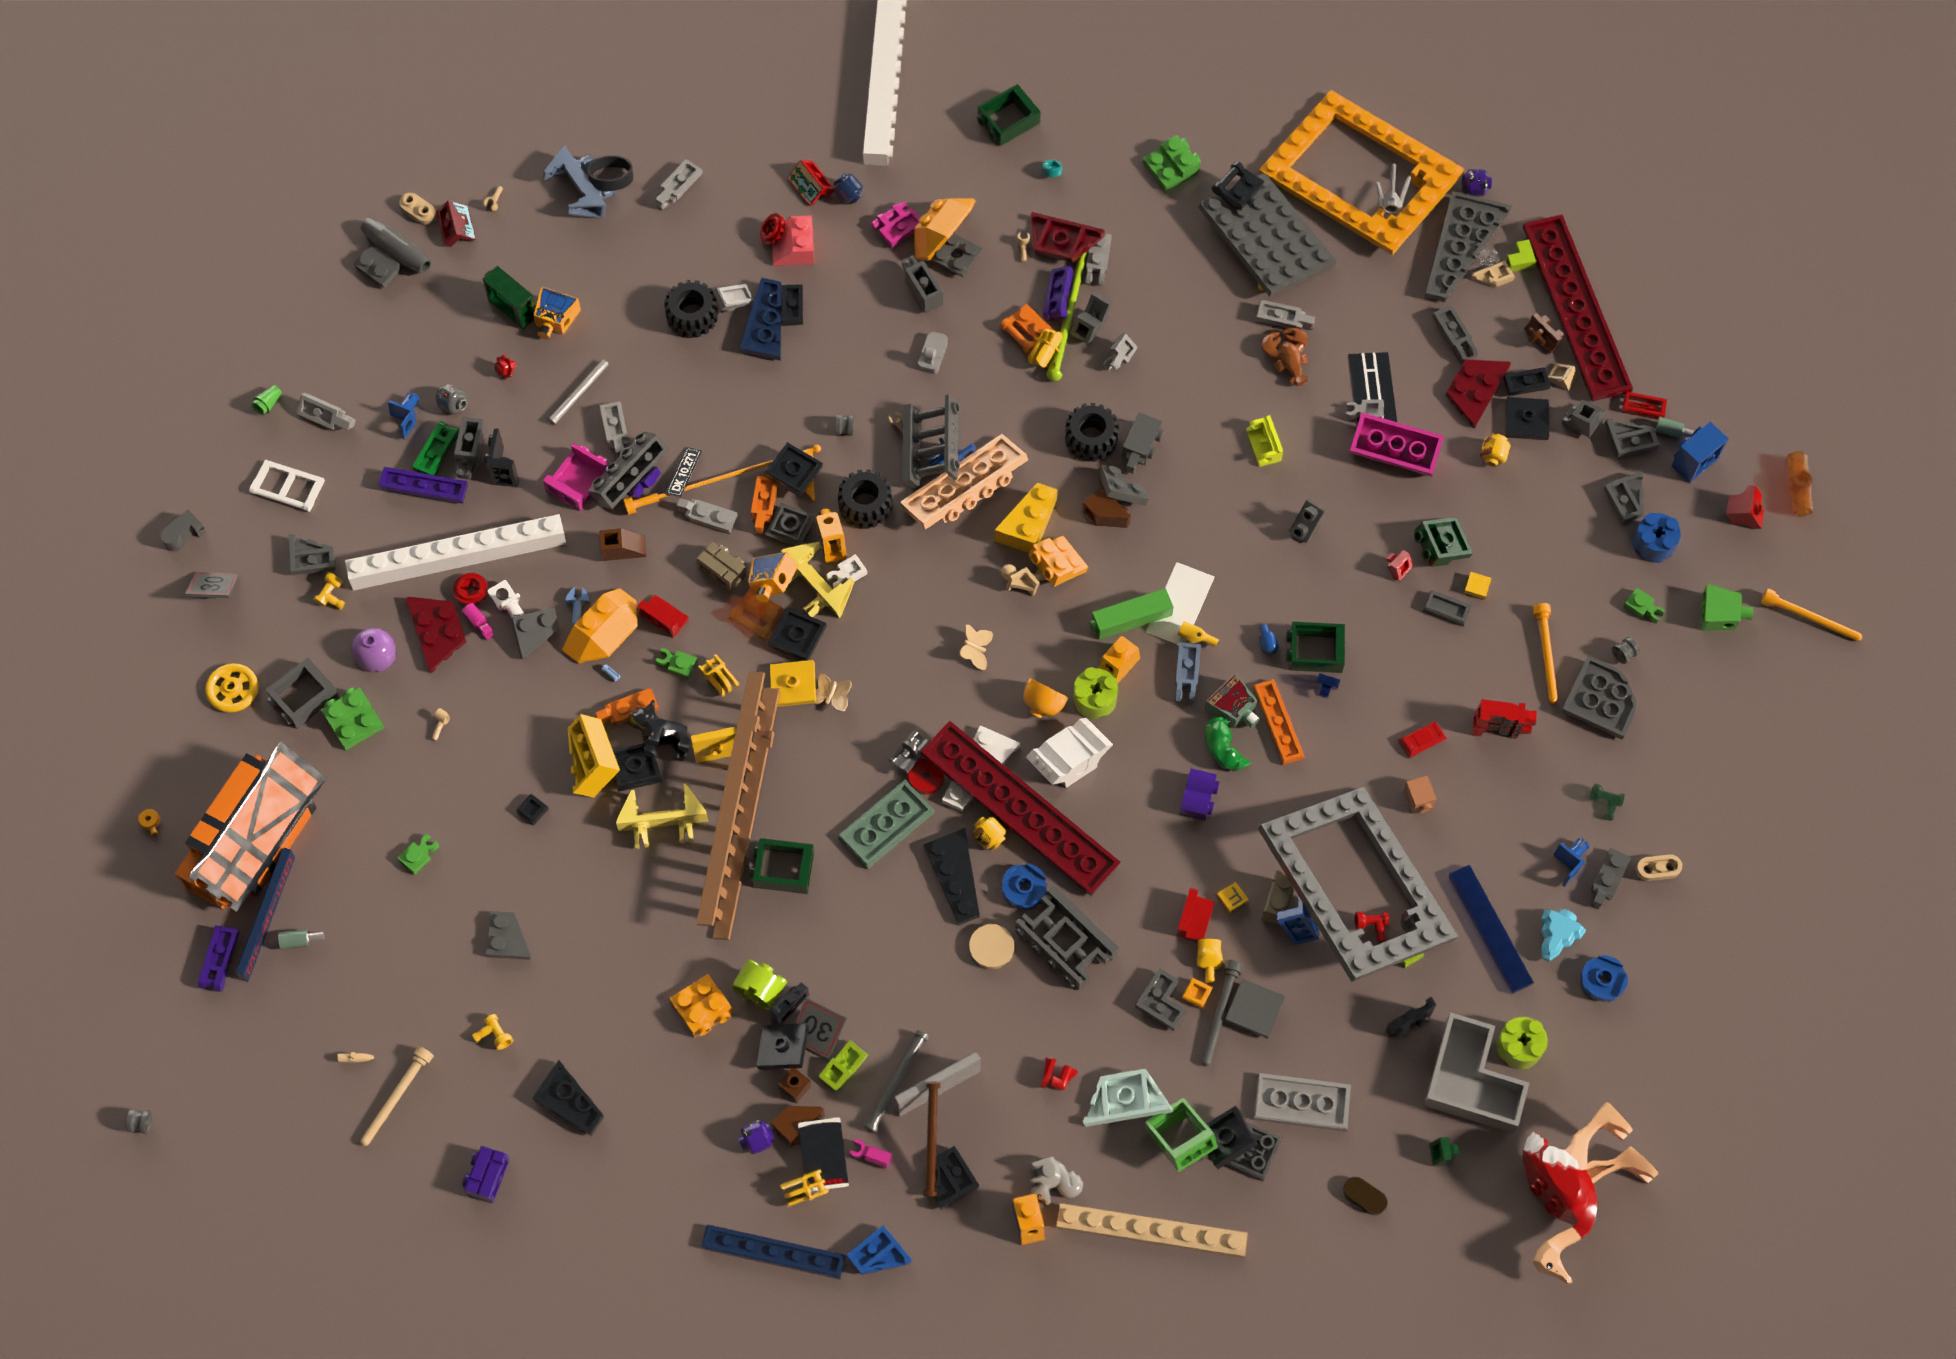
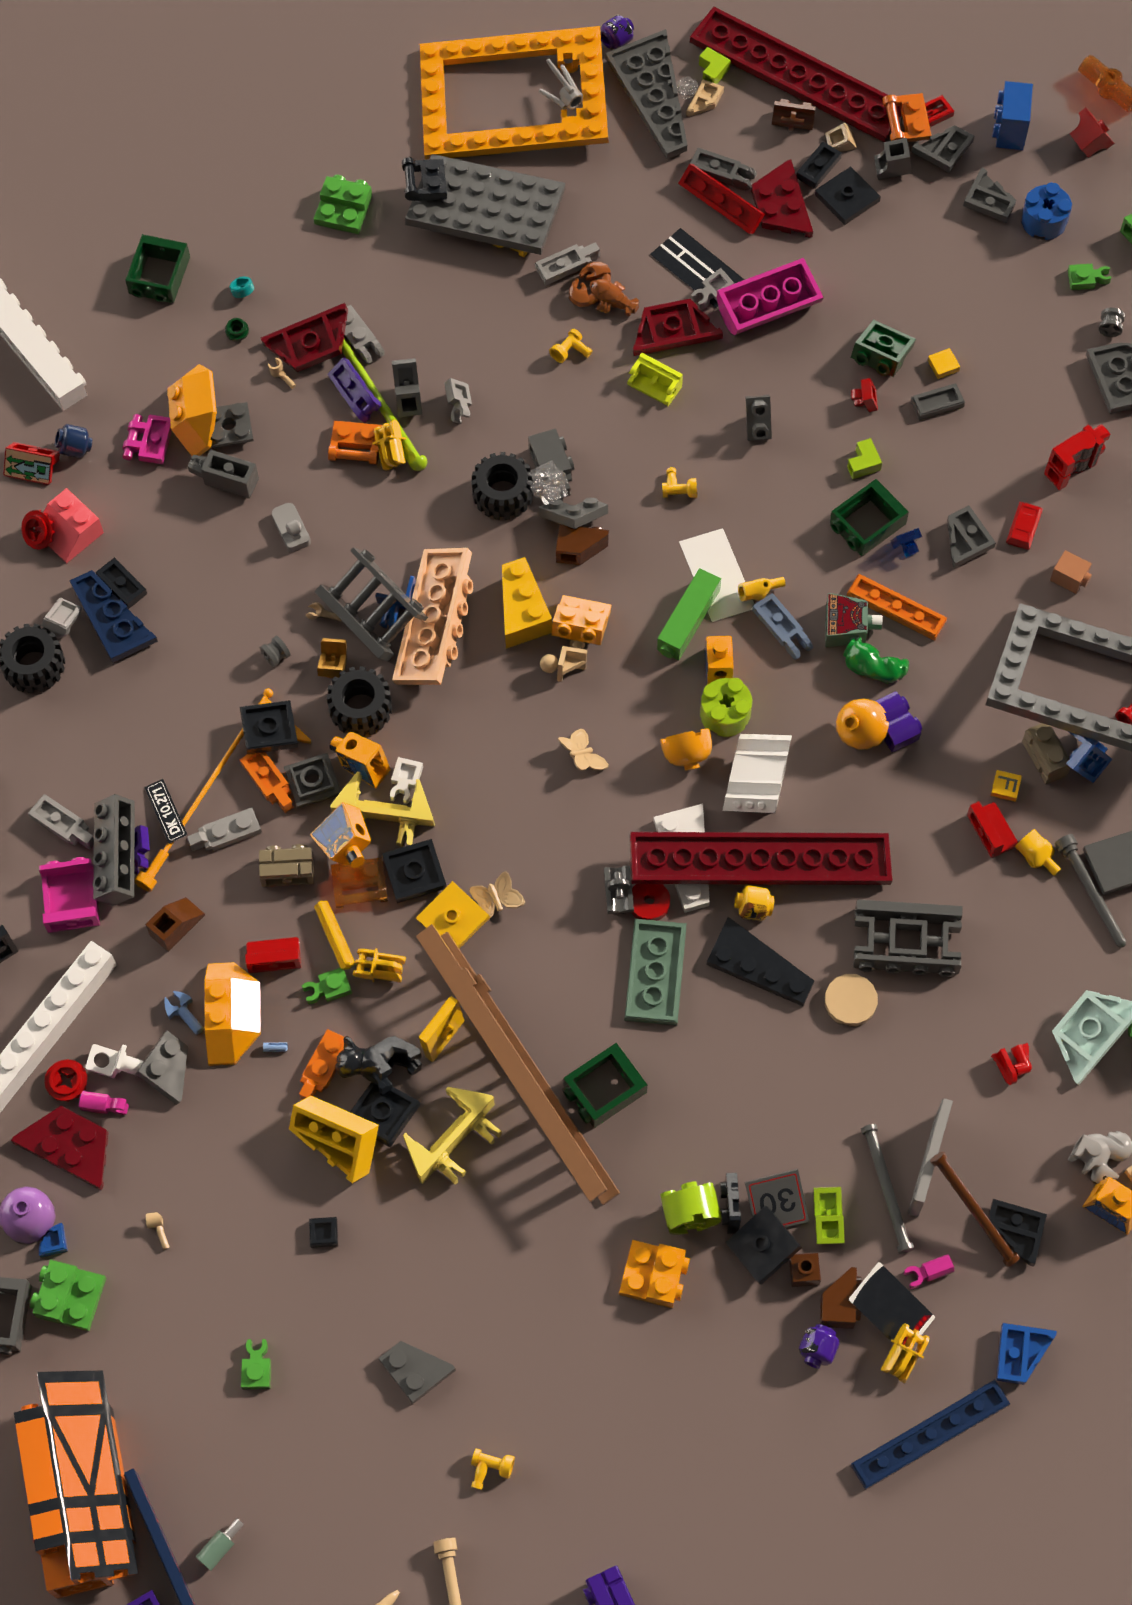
camera: 40 degrees left, 0 degrees up
(374, 680) = (53, 1242): none -> blue tile
(567, 1100) = (620, 1466): black wing -> none
(710, 633) = (334, 935): none -> yellow axle
(876, 458) = (332, 657): none -> pearl gold bracket
(1022, 190) = (236, 324): none -> dark green plate
(1027, 898) = (825, 938): blue plate -> none
(1119, 452) = (548, 482): none -> clear brick
(1155, 1000) = (1032, 927): dark grey plate -> none
(1171, 776) = (862, 724): none -> light orange cylinder
(1197, 993) = (1057, 891): light orange tile -> none
(1205, 522) = (673, 488): none -> yellow piece
(1236, 373) = (559, 352): none -> yellow piece
(1268, 640) = (822, 545): blue cylinder -> none
(1313, 415) = (673, 326): none -> dark red wing
(1354, 610) = (866, 461): none -> lime piece
(1372, 714) = (967, 536): none -> dark grey wing
(1433, 353) = (721, 198): none -> red plate
(1495, 450) = (850, 240): yellow head -> none
(1542, 612) = (1017, 345): light orange piece -> none
(1627, 398) = (913, 115): none -> orange plate
(1672, 428) = (970, 114): sand green piece -> none

